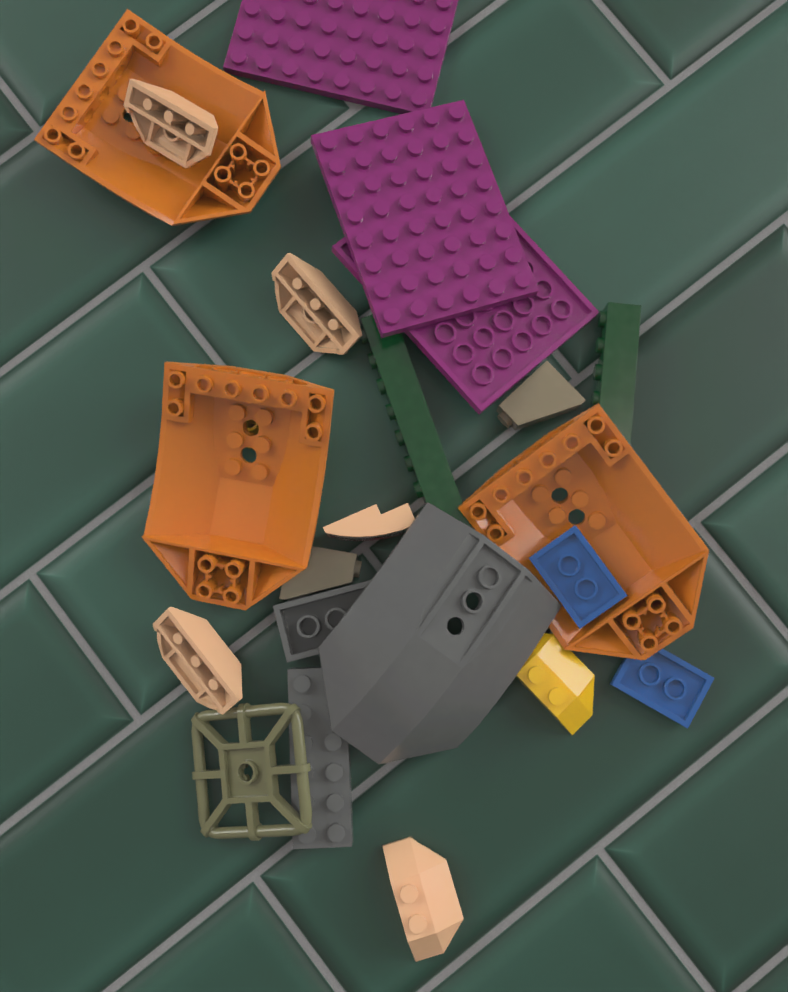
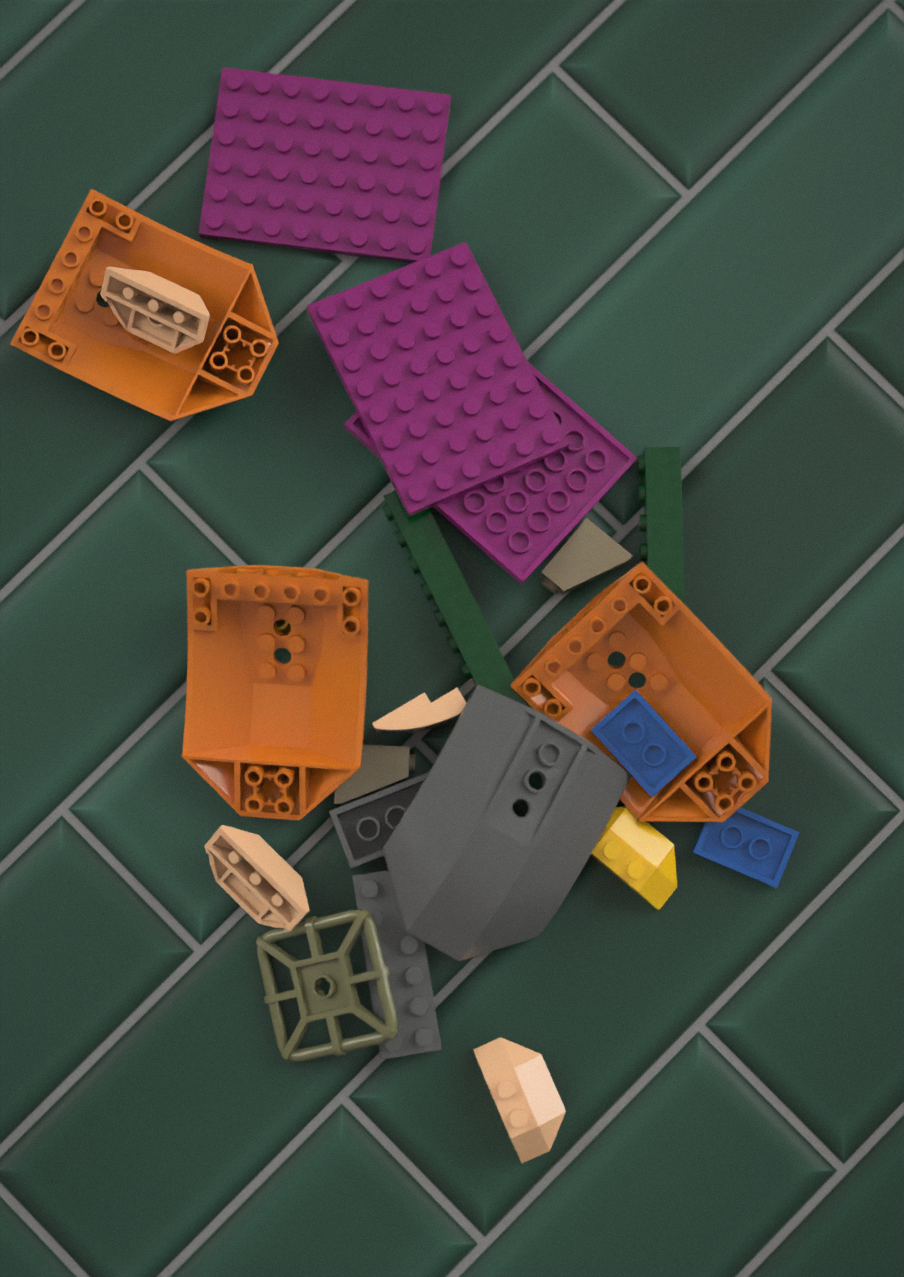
camera: 10 degrees left, 0 degrees up
(315, 307) = (333, 488): light nougat wedge -> none

